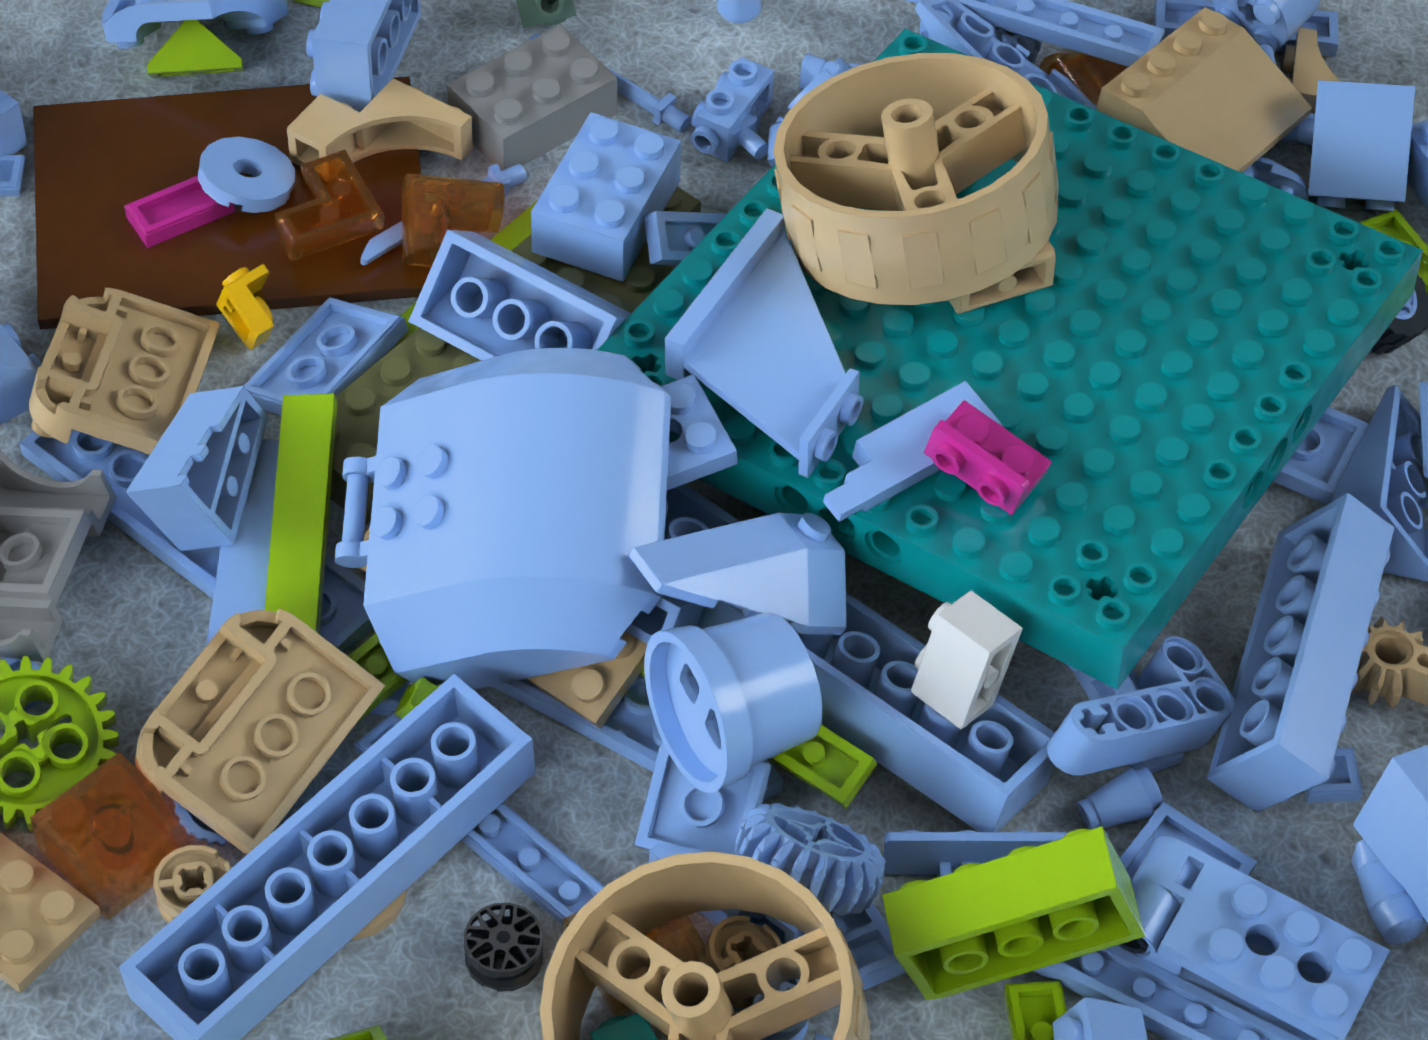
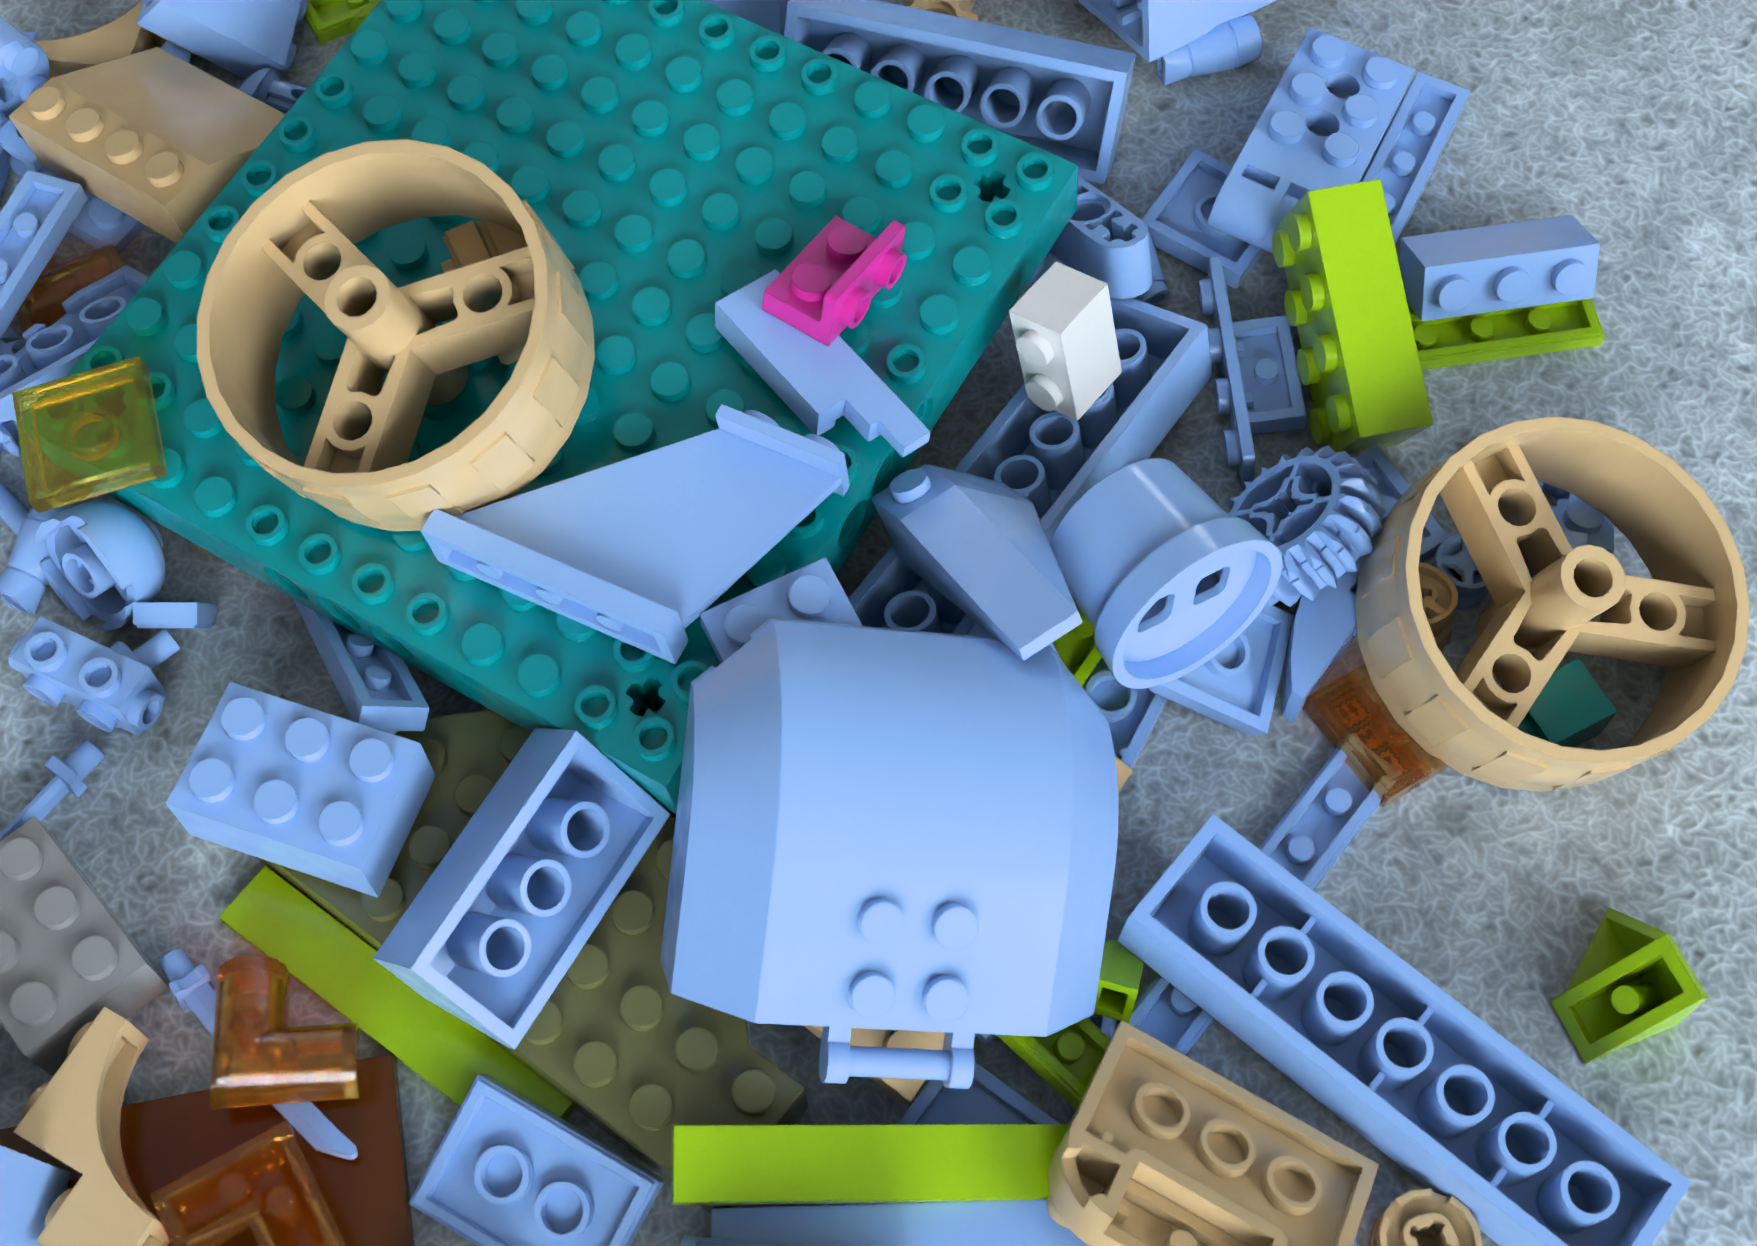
camera: 90 degrees left, 10 degrees up
(505, 949) = (1432, 864): black wheel -> none
(879, 37) = (89, 434): none -> clear yellow tile

